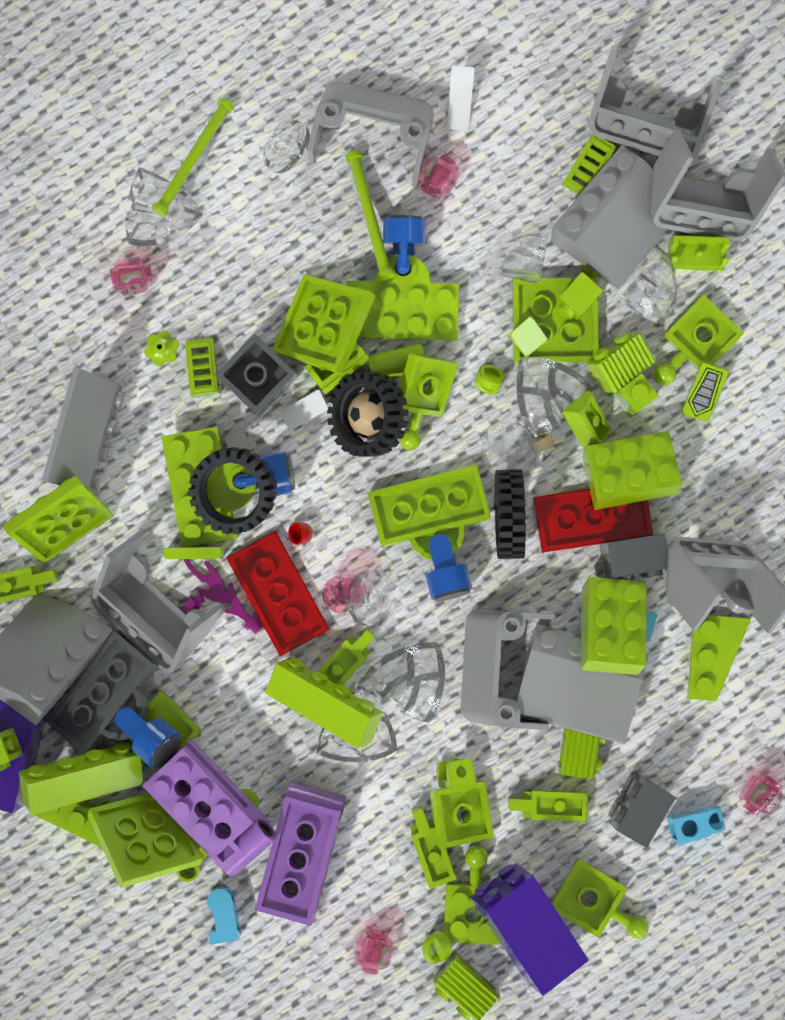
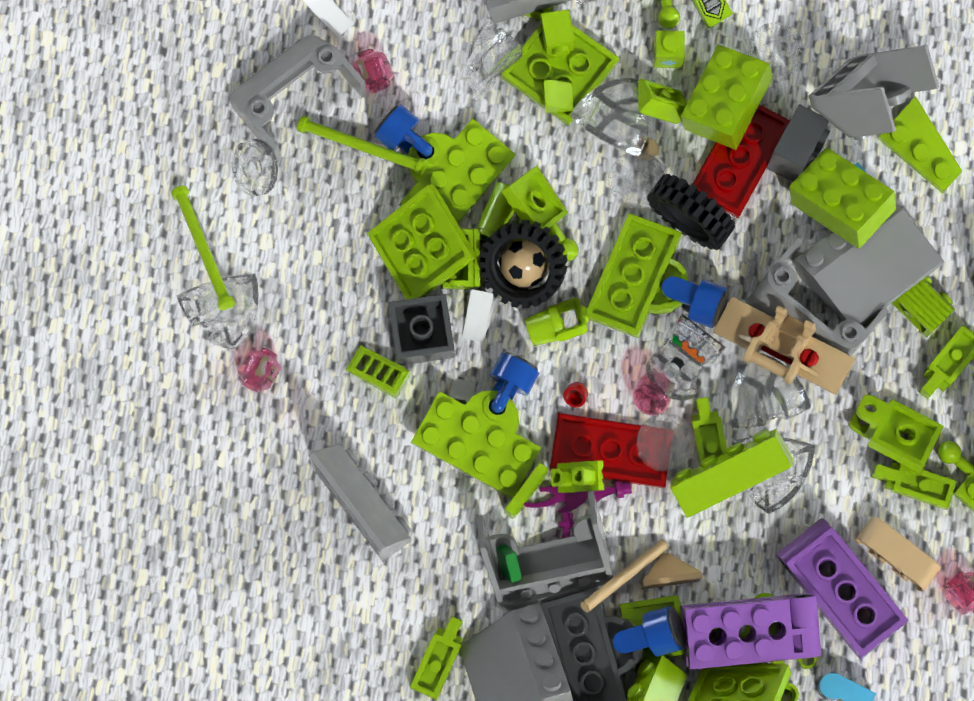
camera: 50 degrees left, 10 degrees down
(58, 519) = (416, 573): lime plate -> none
(125, 583) = (509, 563): none -> green tile
(166, 353) = (335, 400): lime plant -> none
(181, 679) = (624, 575): none -> tan bar
(207, 511) = (526, 440): black tyre -> none
(216, 710) = (669, 572): none -> tan slope
(231, 585) = (578, 476): none -> lime hips
(313, 631) = (665, 442): none -> clear tile
(338, 473) = (549, 326): none -> lime piece
(364, 875) = (898, 552): none -> tan beam
(398, 594) = (688, 350): none -> clear torso
(465, 667) = (785, 340): none -> tan piece
(489, 379) = (567, 153): lime tile -> none
(620, 362) = (633, 41): lime brick -> none

